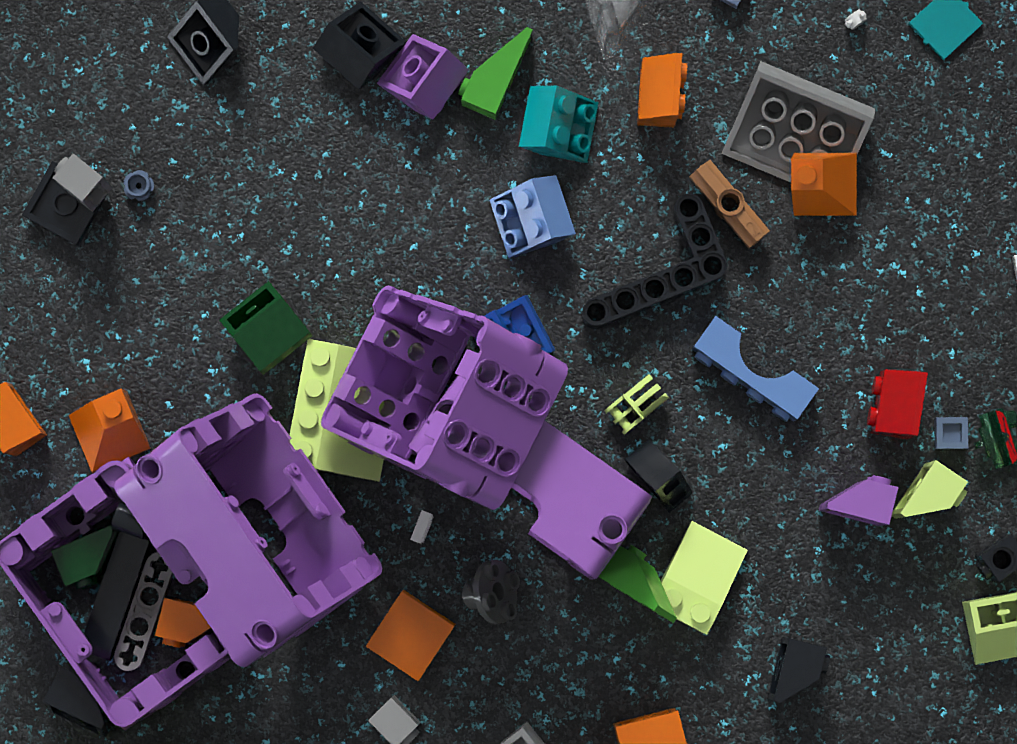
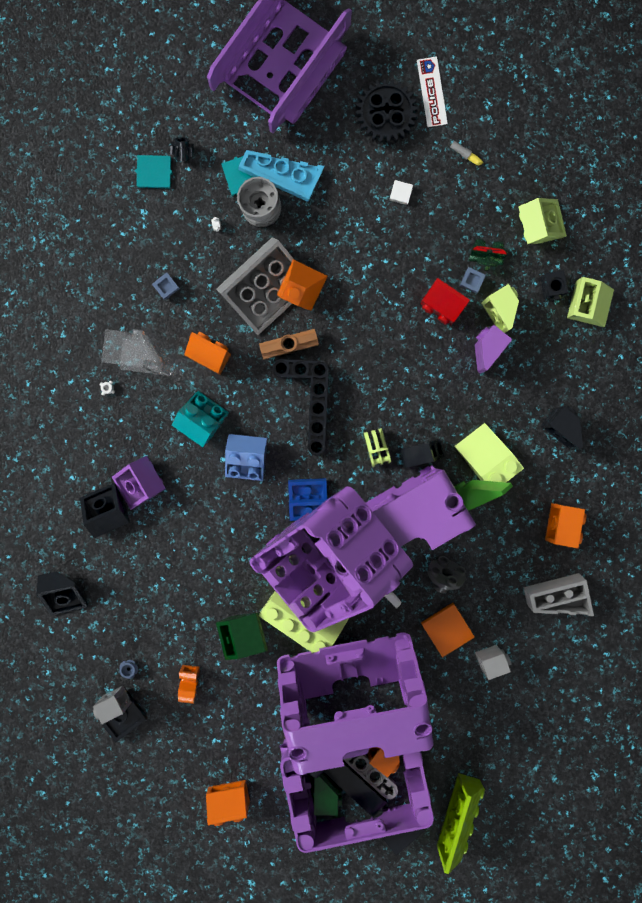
camera: 60 degrees left, 5 degrees up
(109, 429) = (259, 745): orange slope -> none
(153, 283) = (188, 683): none -> orange leg
(493, 78) = (157, 443): bright green slope -> none
(721, 347) = (409, 361): medium blue arch -> none
(924, 52) = (252, 194): none -> light grey wheel
(975, 84) = (286, 175): none -> medium azure wing

